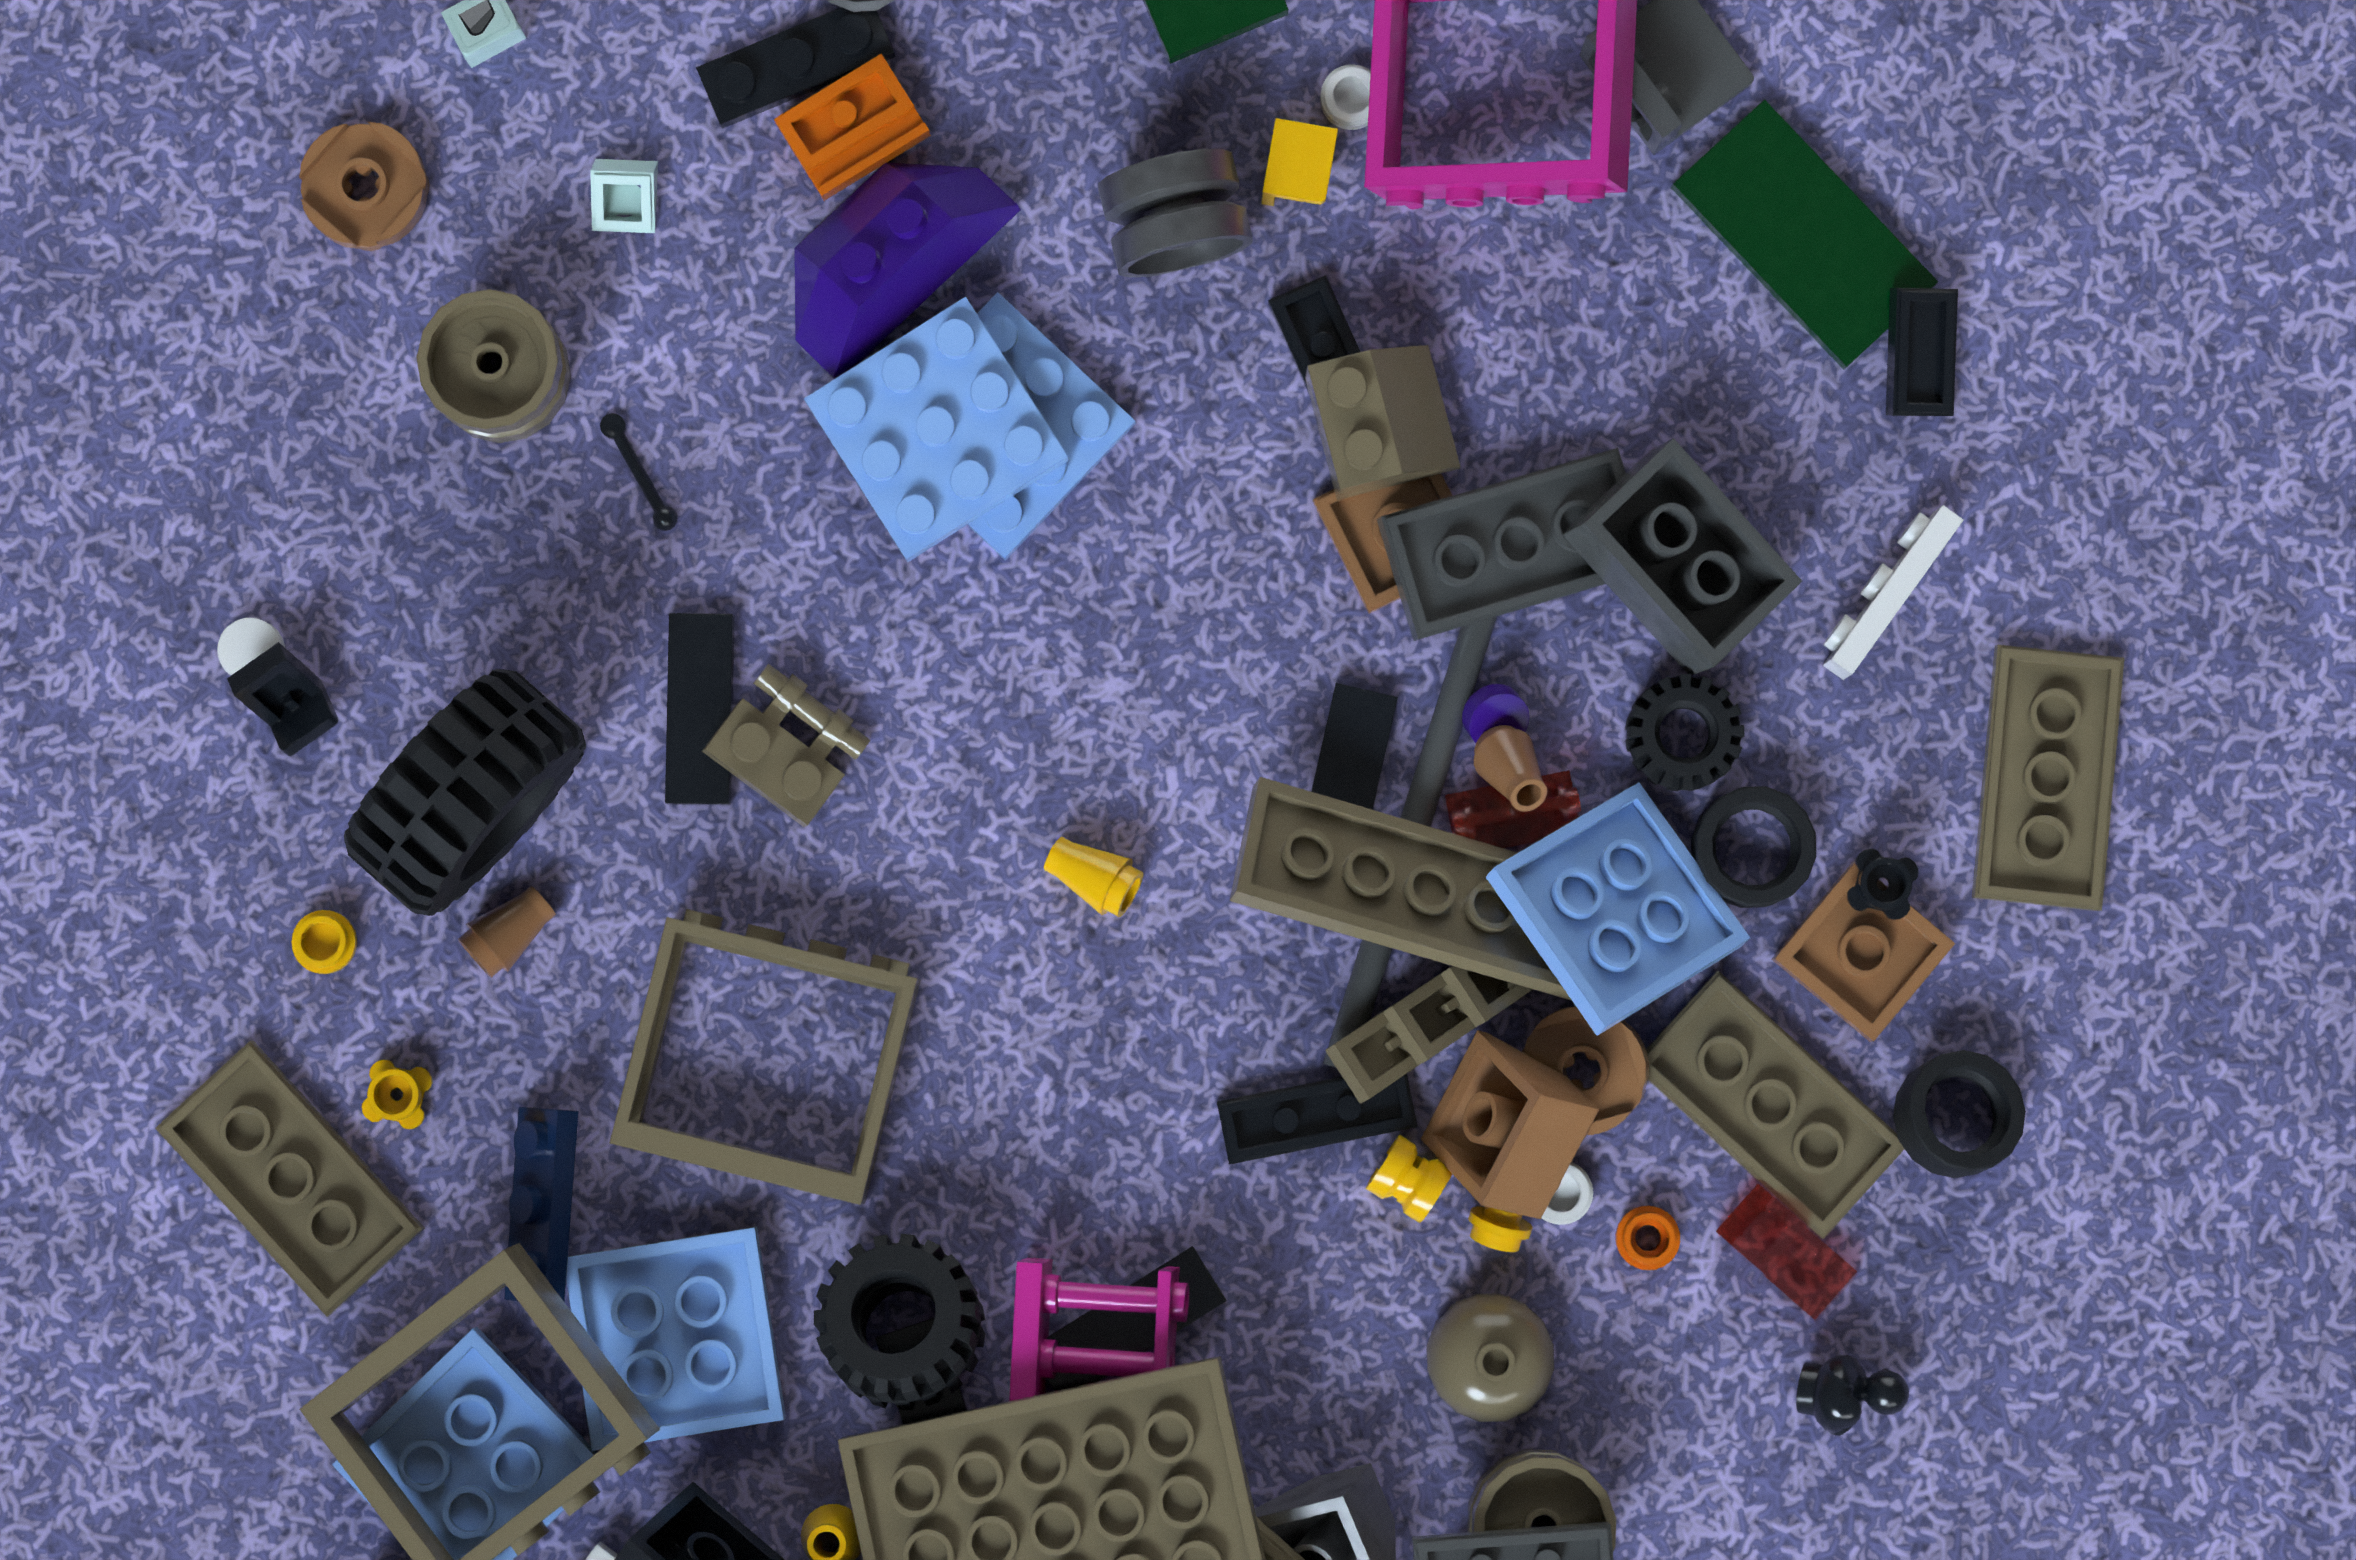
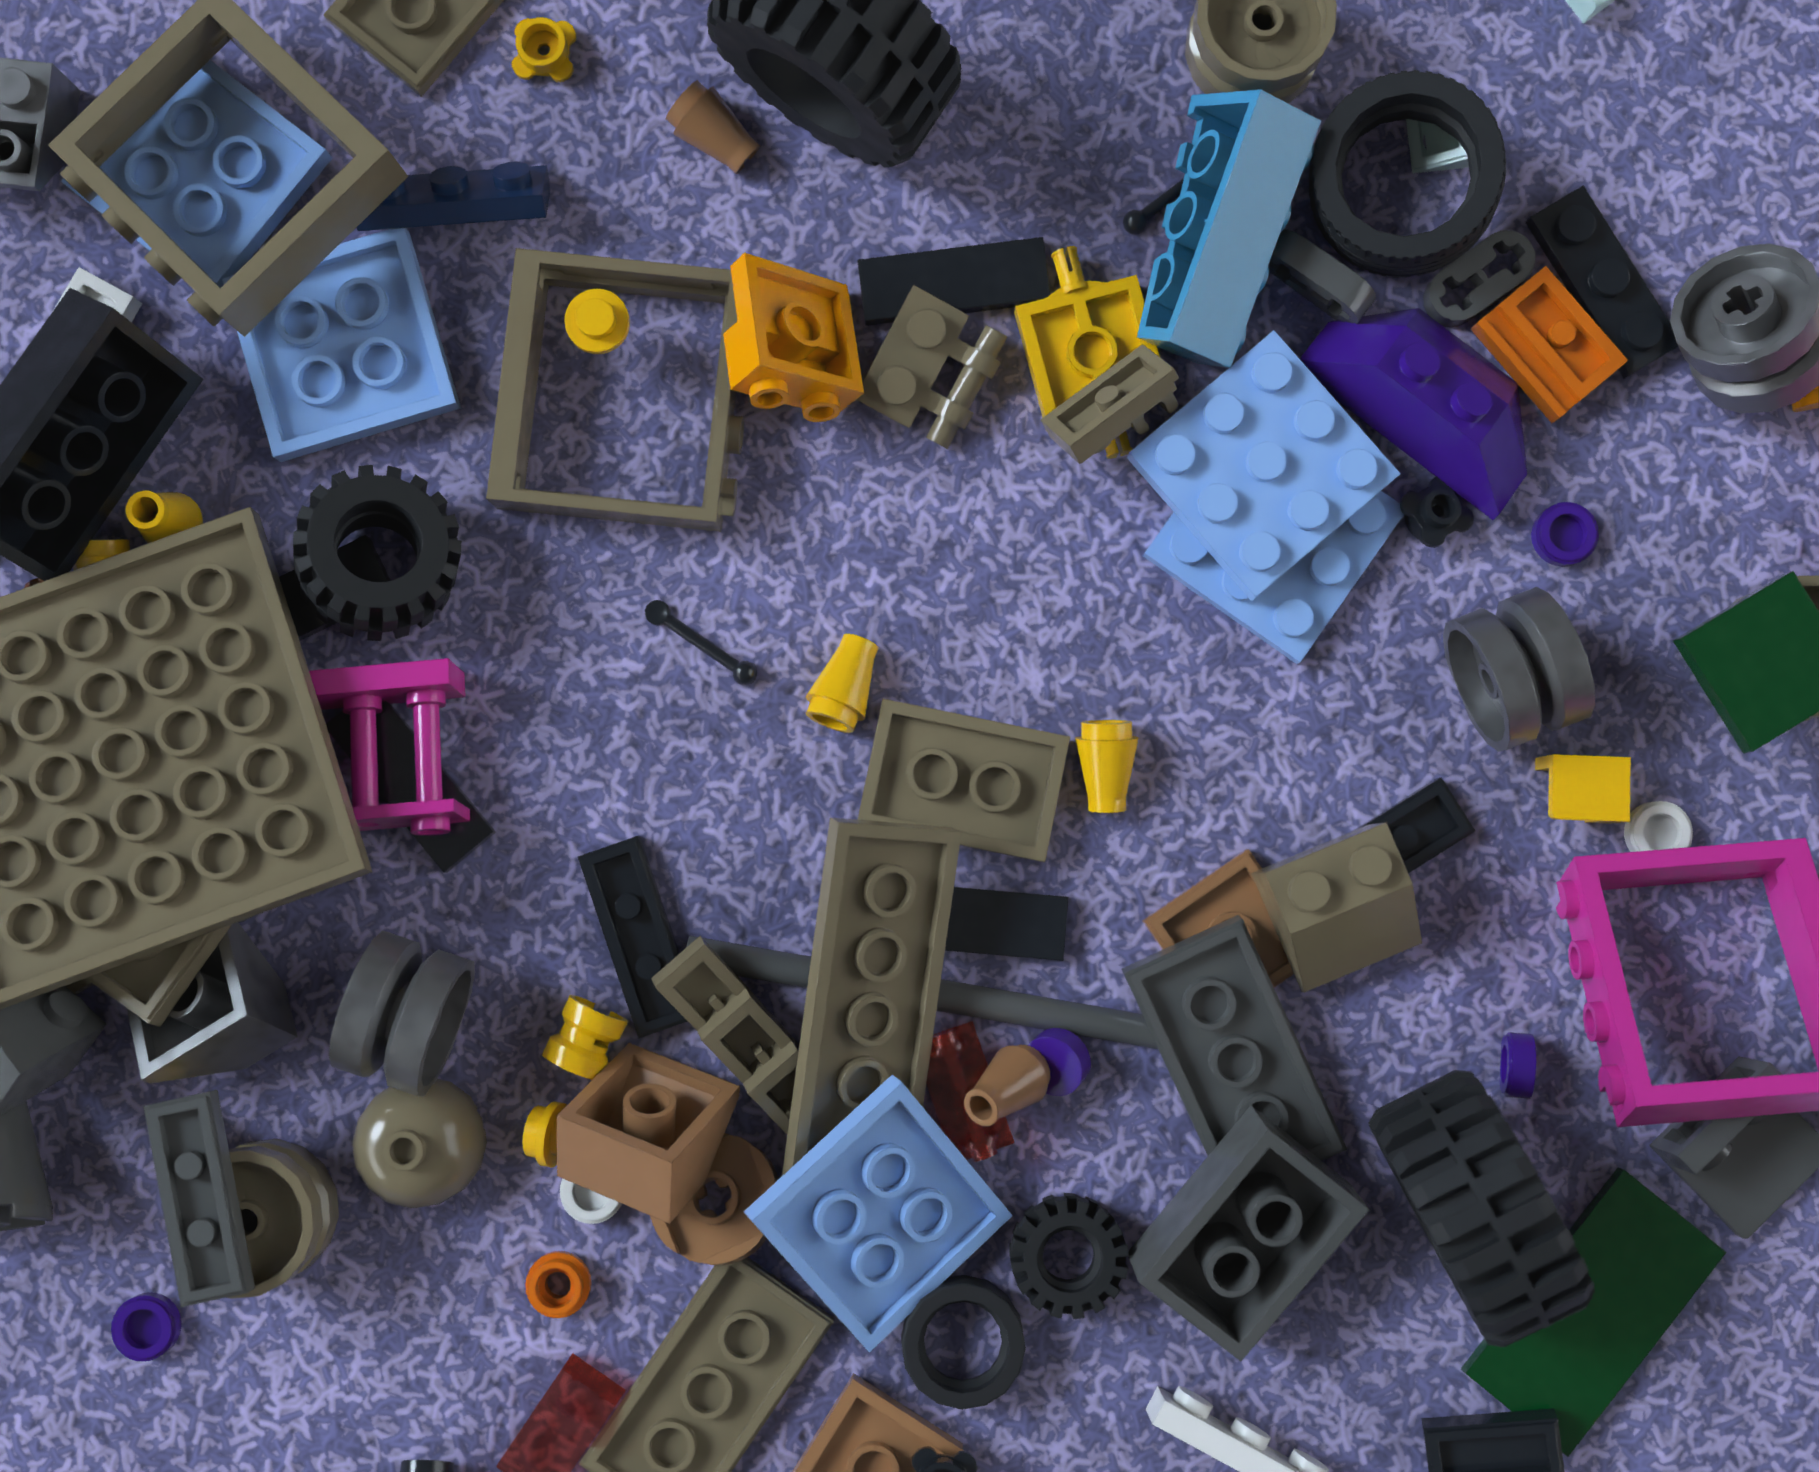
camera: 80 degrees right, 0 degrees up
(594, 274) = (1420, 98): none -> black tyre
(690, 432) = (1225, 222): none -> dark azure wedge
(699, 1068) = (597, 321): none -> yellow plate
(744, 876) = (792, 340): none -> light orange plate
(751, 345) = (1320, 278): none -> dark grey beam
(787, 177) = (1471, 267): none -> dark grey beam
(794, 581) = (1079, 334): none -> yellow plate
(856, 569) = (1113, 404): none -> dark tan plate
(995, 1052) = (659, 614): none -> black hinge
(1013, 279) = (1424, 523): none -> black plate
(1044, 140) = (1565, 534): none -> dark purple tile
(1202, 766) = (967, 775): none -> dark tan plate
(1206, 625) = (1106, 762): none -> yellow cone
(1359, 1355) = (401, 1013): none -> flat silver wheel
(1558, 270) = (1518, 1065): none -> dark purple tile
(1683, 335) = (1483, 1208): none -> black tyre

